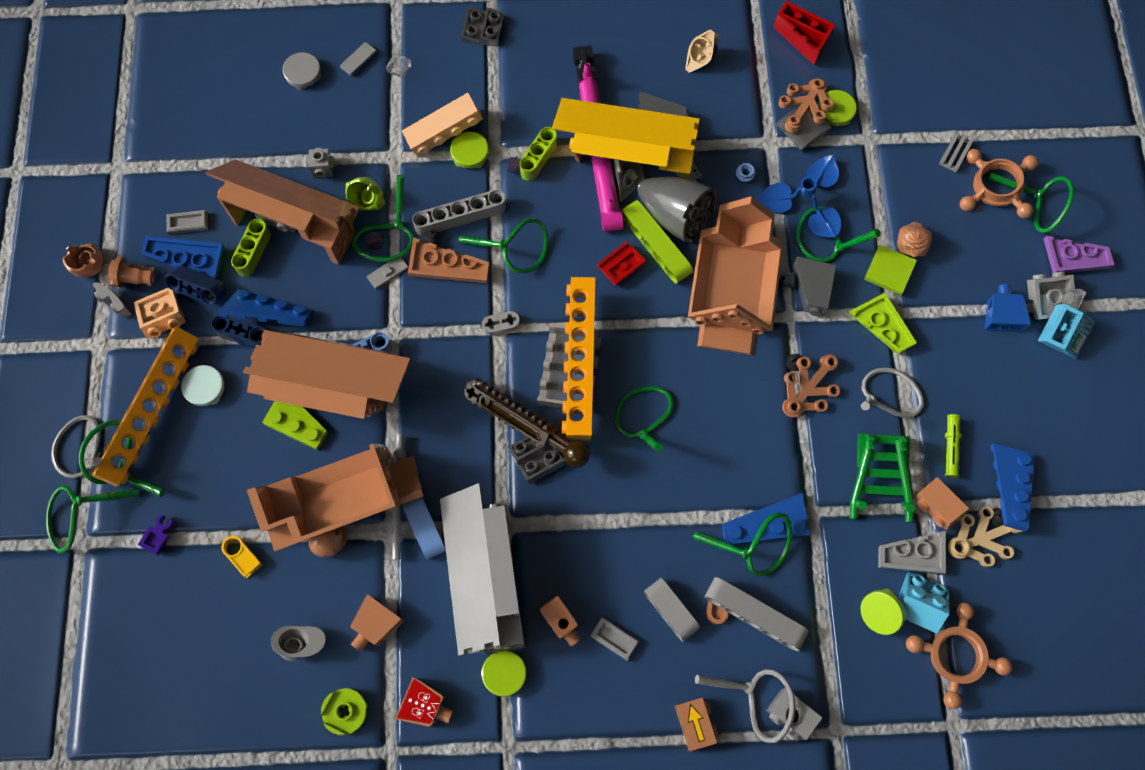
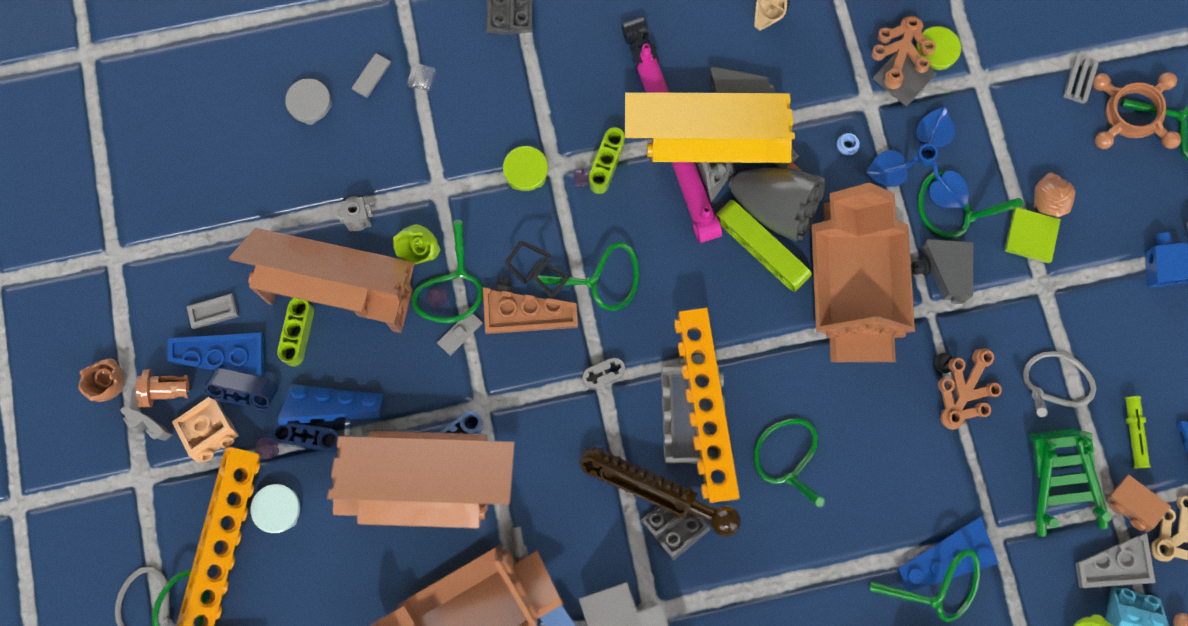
camera: 10 degrees left, 5 degrees up
(206, 336) = (267, 448): none -> clear purple plate
(296, 424) = (395, 538): lime wing -> none
(442, 124) = (490, 144): light nougat wedge -> none
(458, 233) = (537, 269): none -> black piece
(466, 205) = (536, 238): light grey beam -> none
(621, 264) = (728, 278): red plate -> none
(885, 323) = (1037, 299): lime wing -> none

